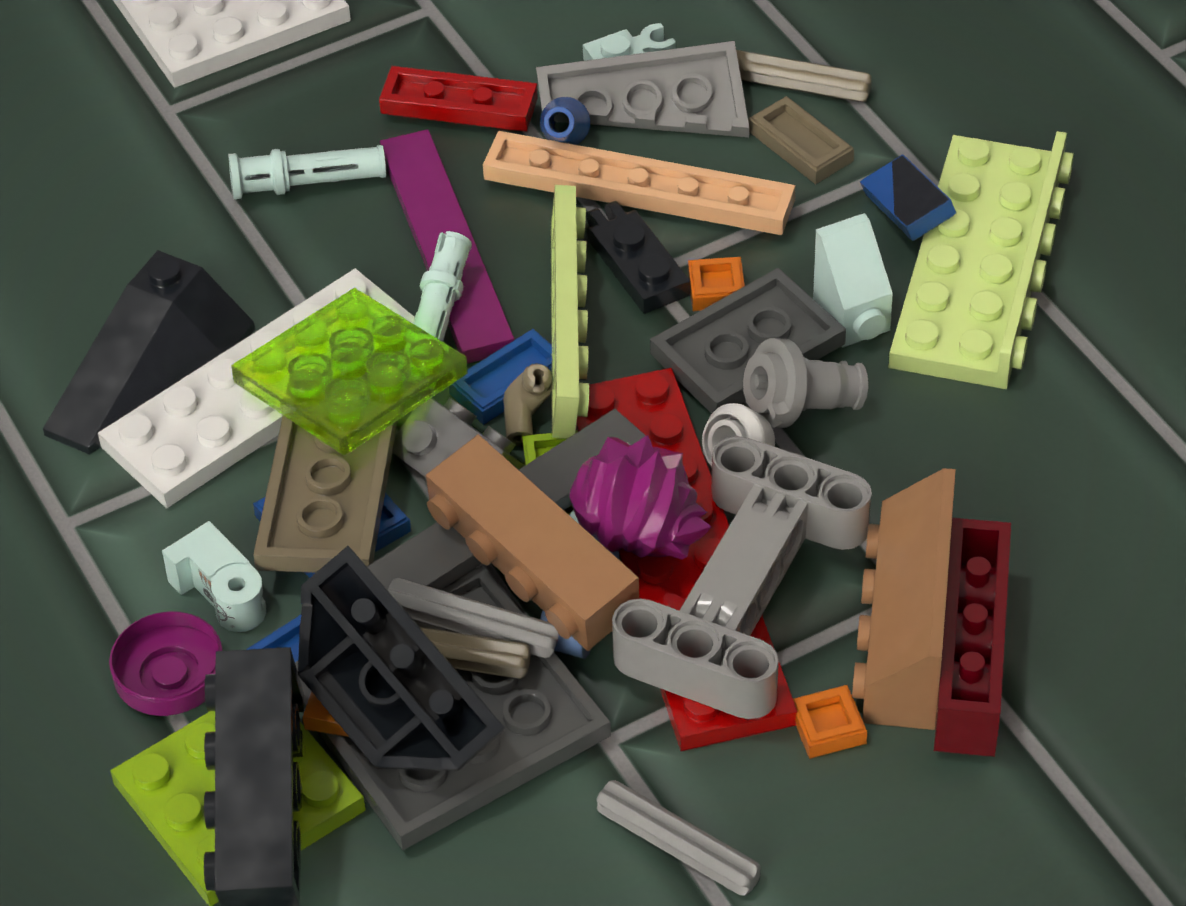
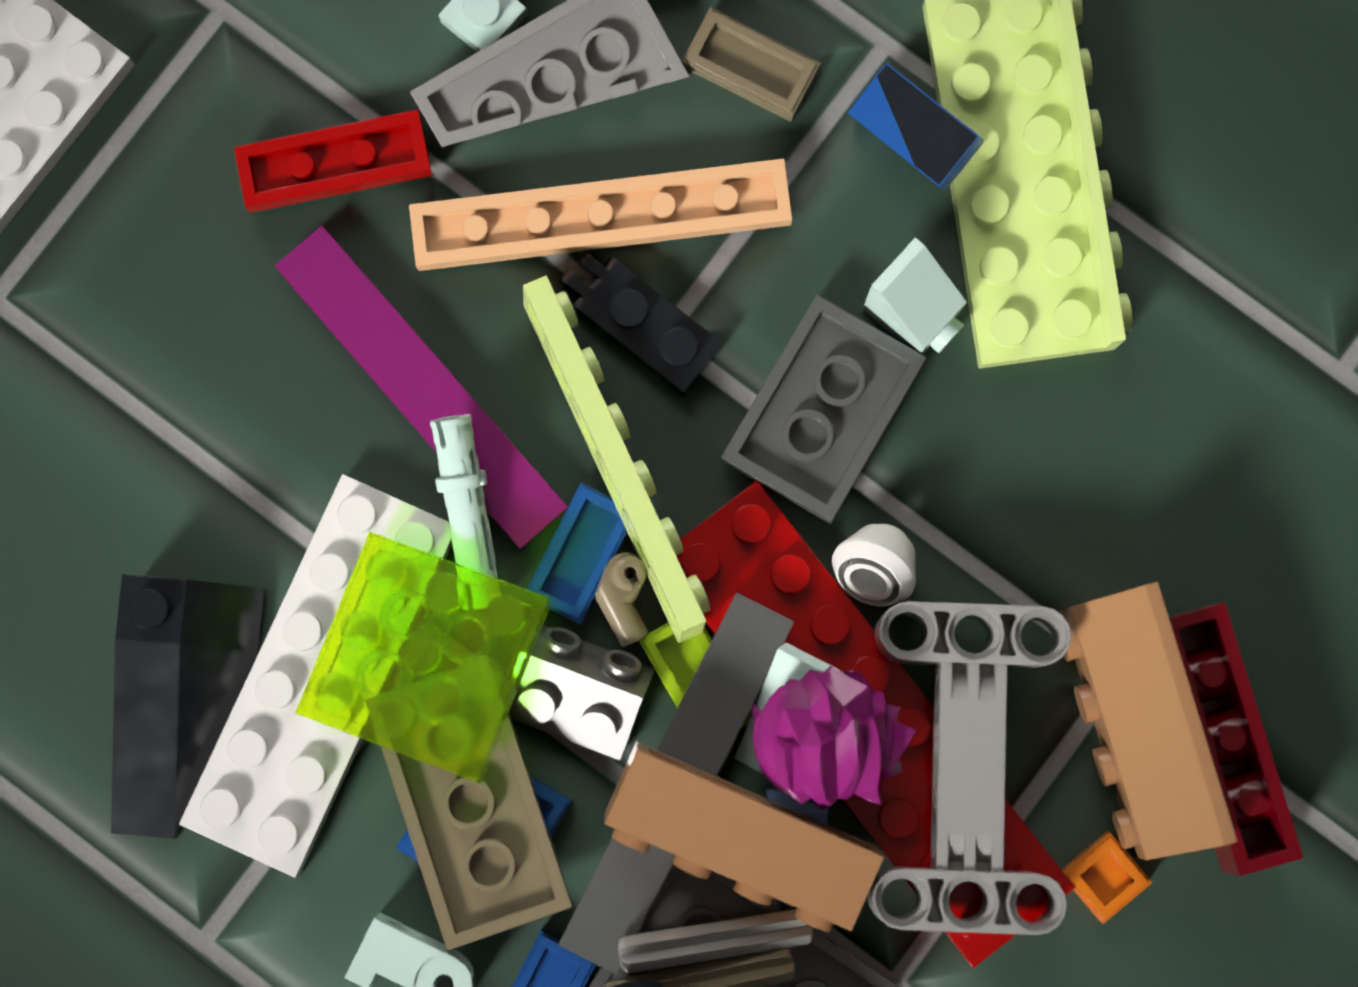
camera: 20 degrees left, 35 degrees up
(275, 172) = (185, 360): light aqua pin -> none
(578, 120) = (480, 165): blue cone -> none
(713, 280) = (748, 326): orange tile -> none
(784, 383) = (904, 482): light grey piece -> none

